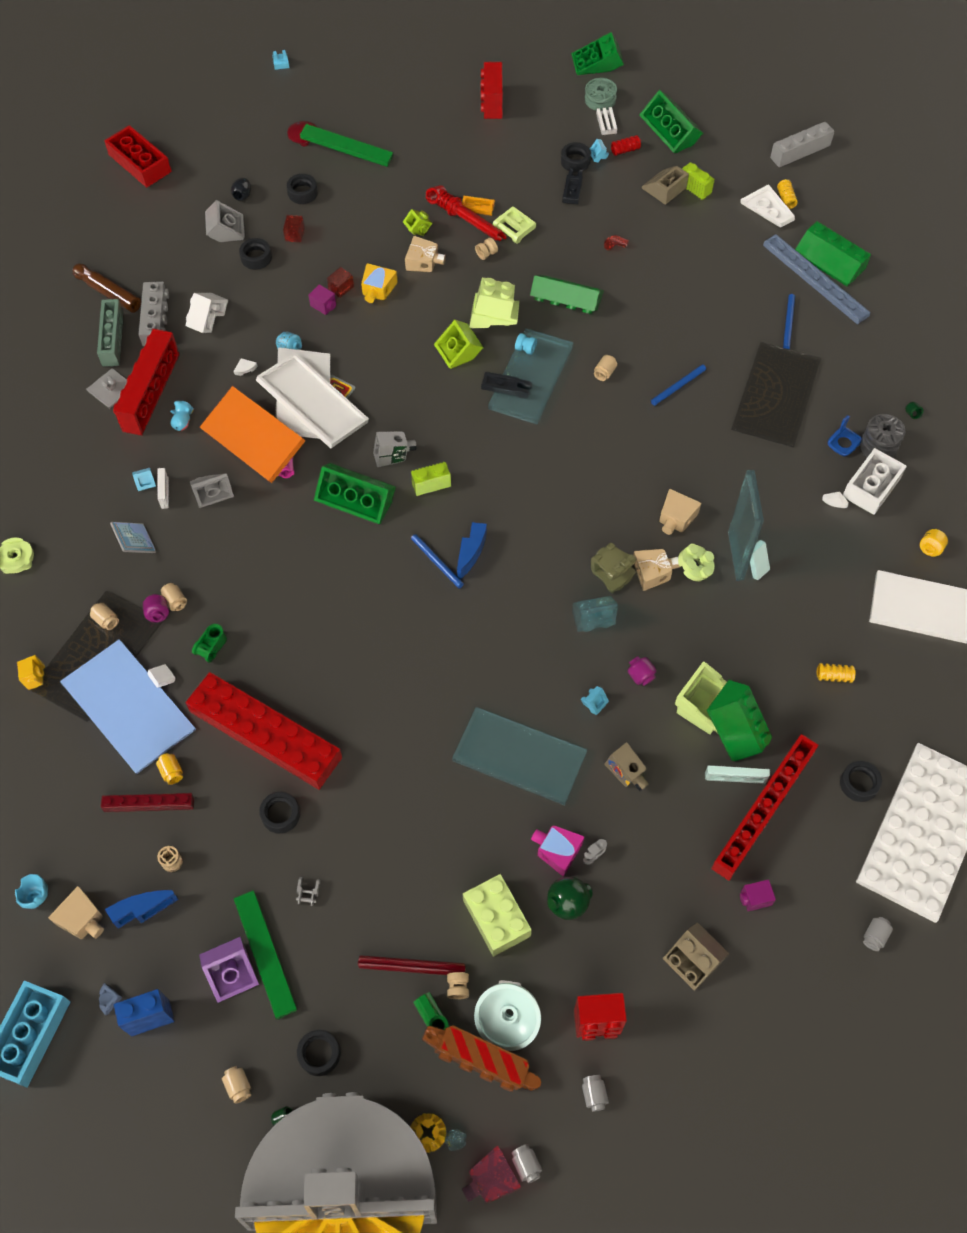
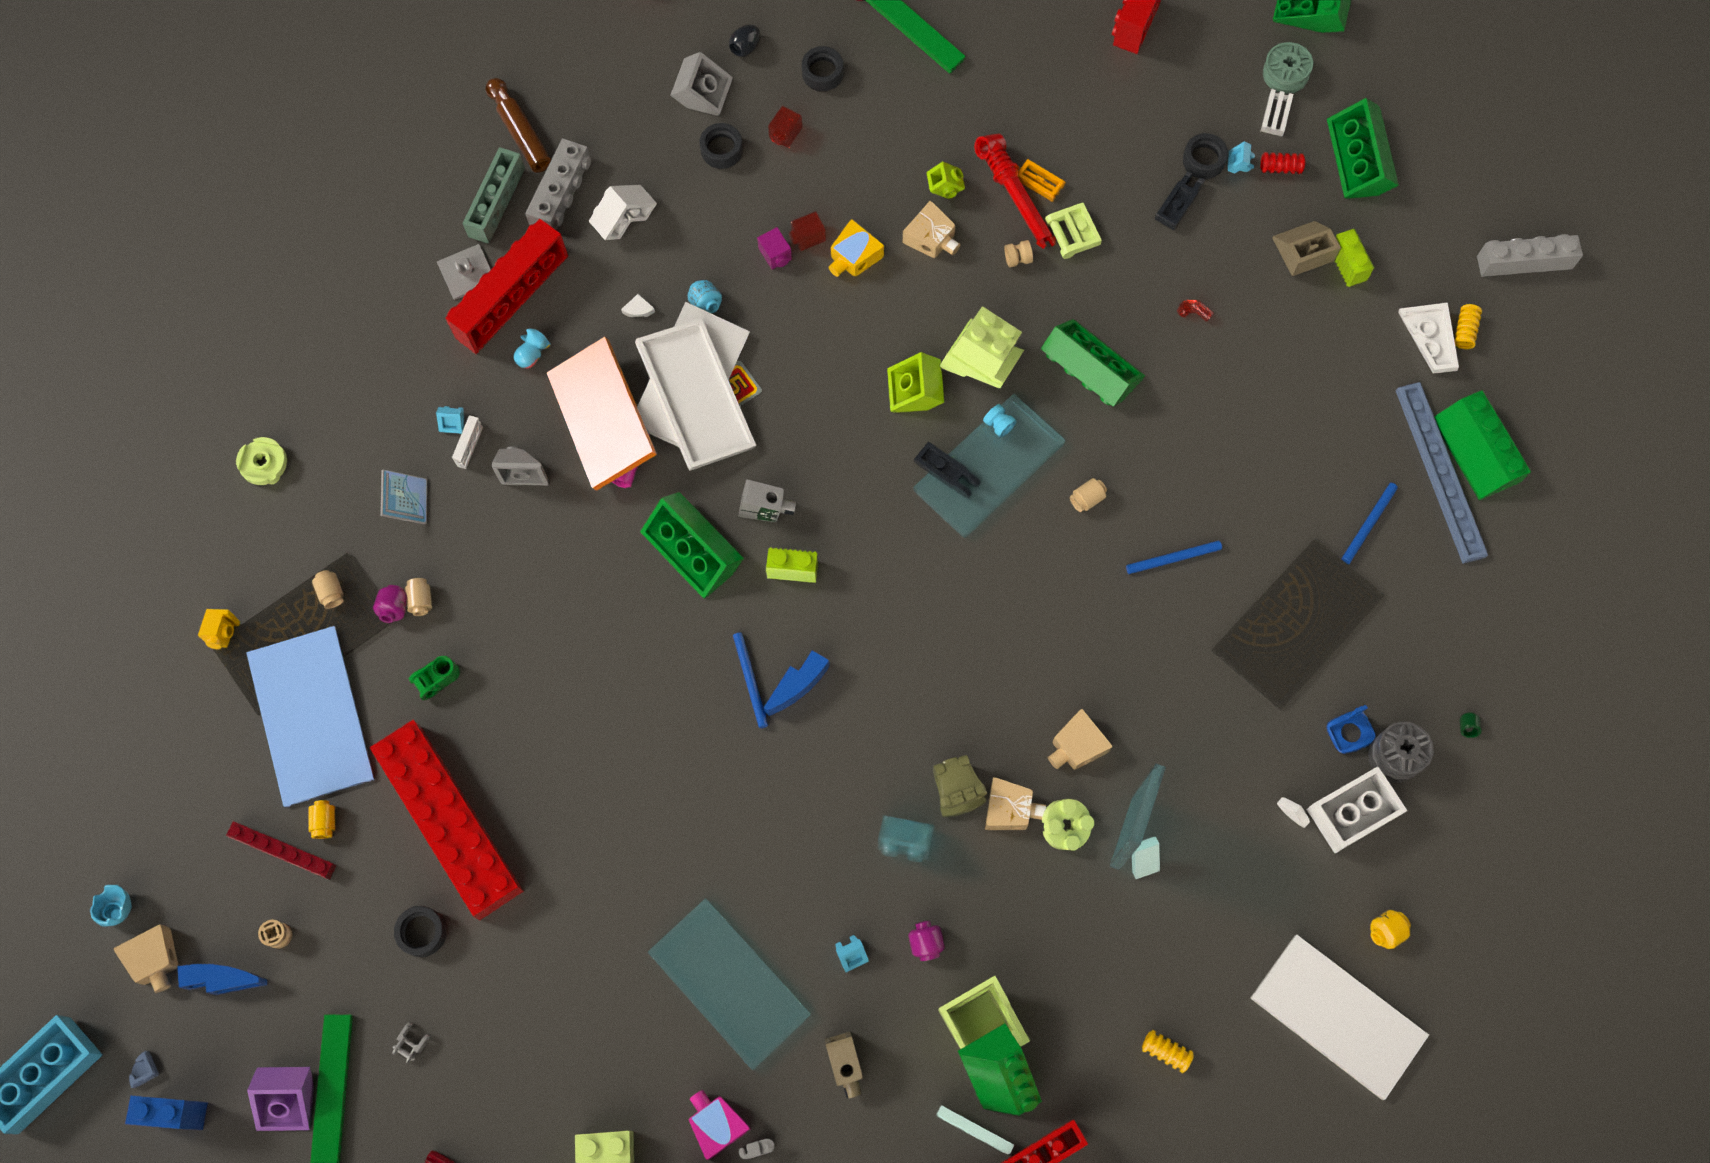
camera: 25 degrees right, 10 degrees up
(161, 675) = (362, 694): white tile -> none

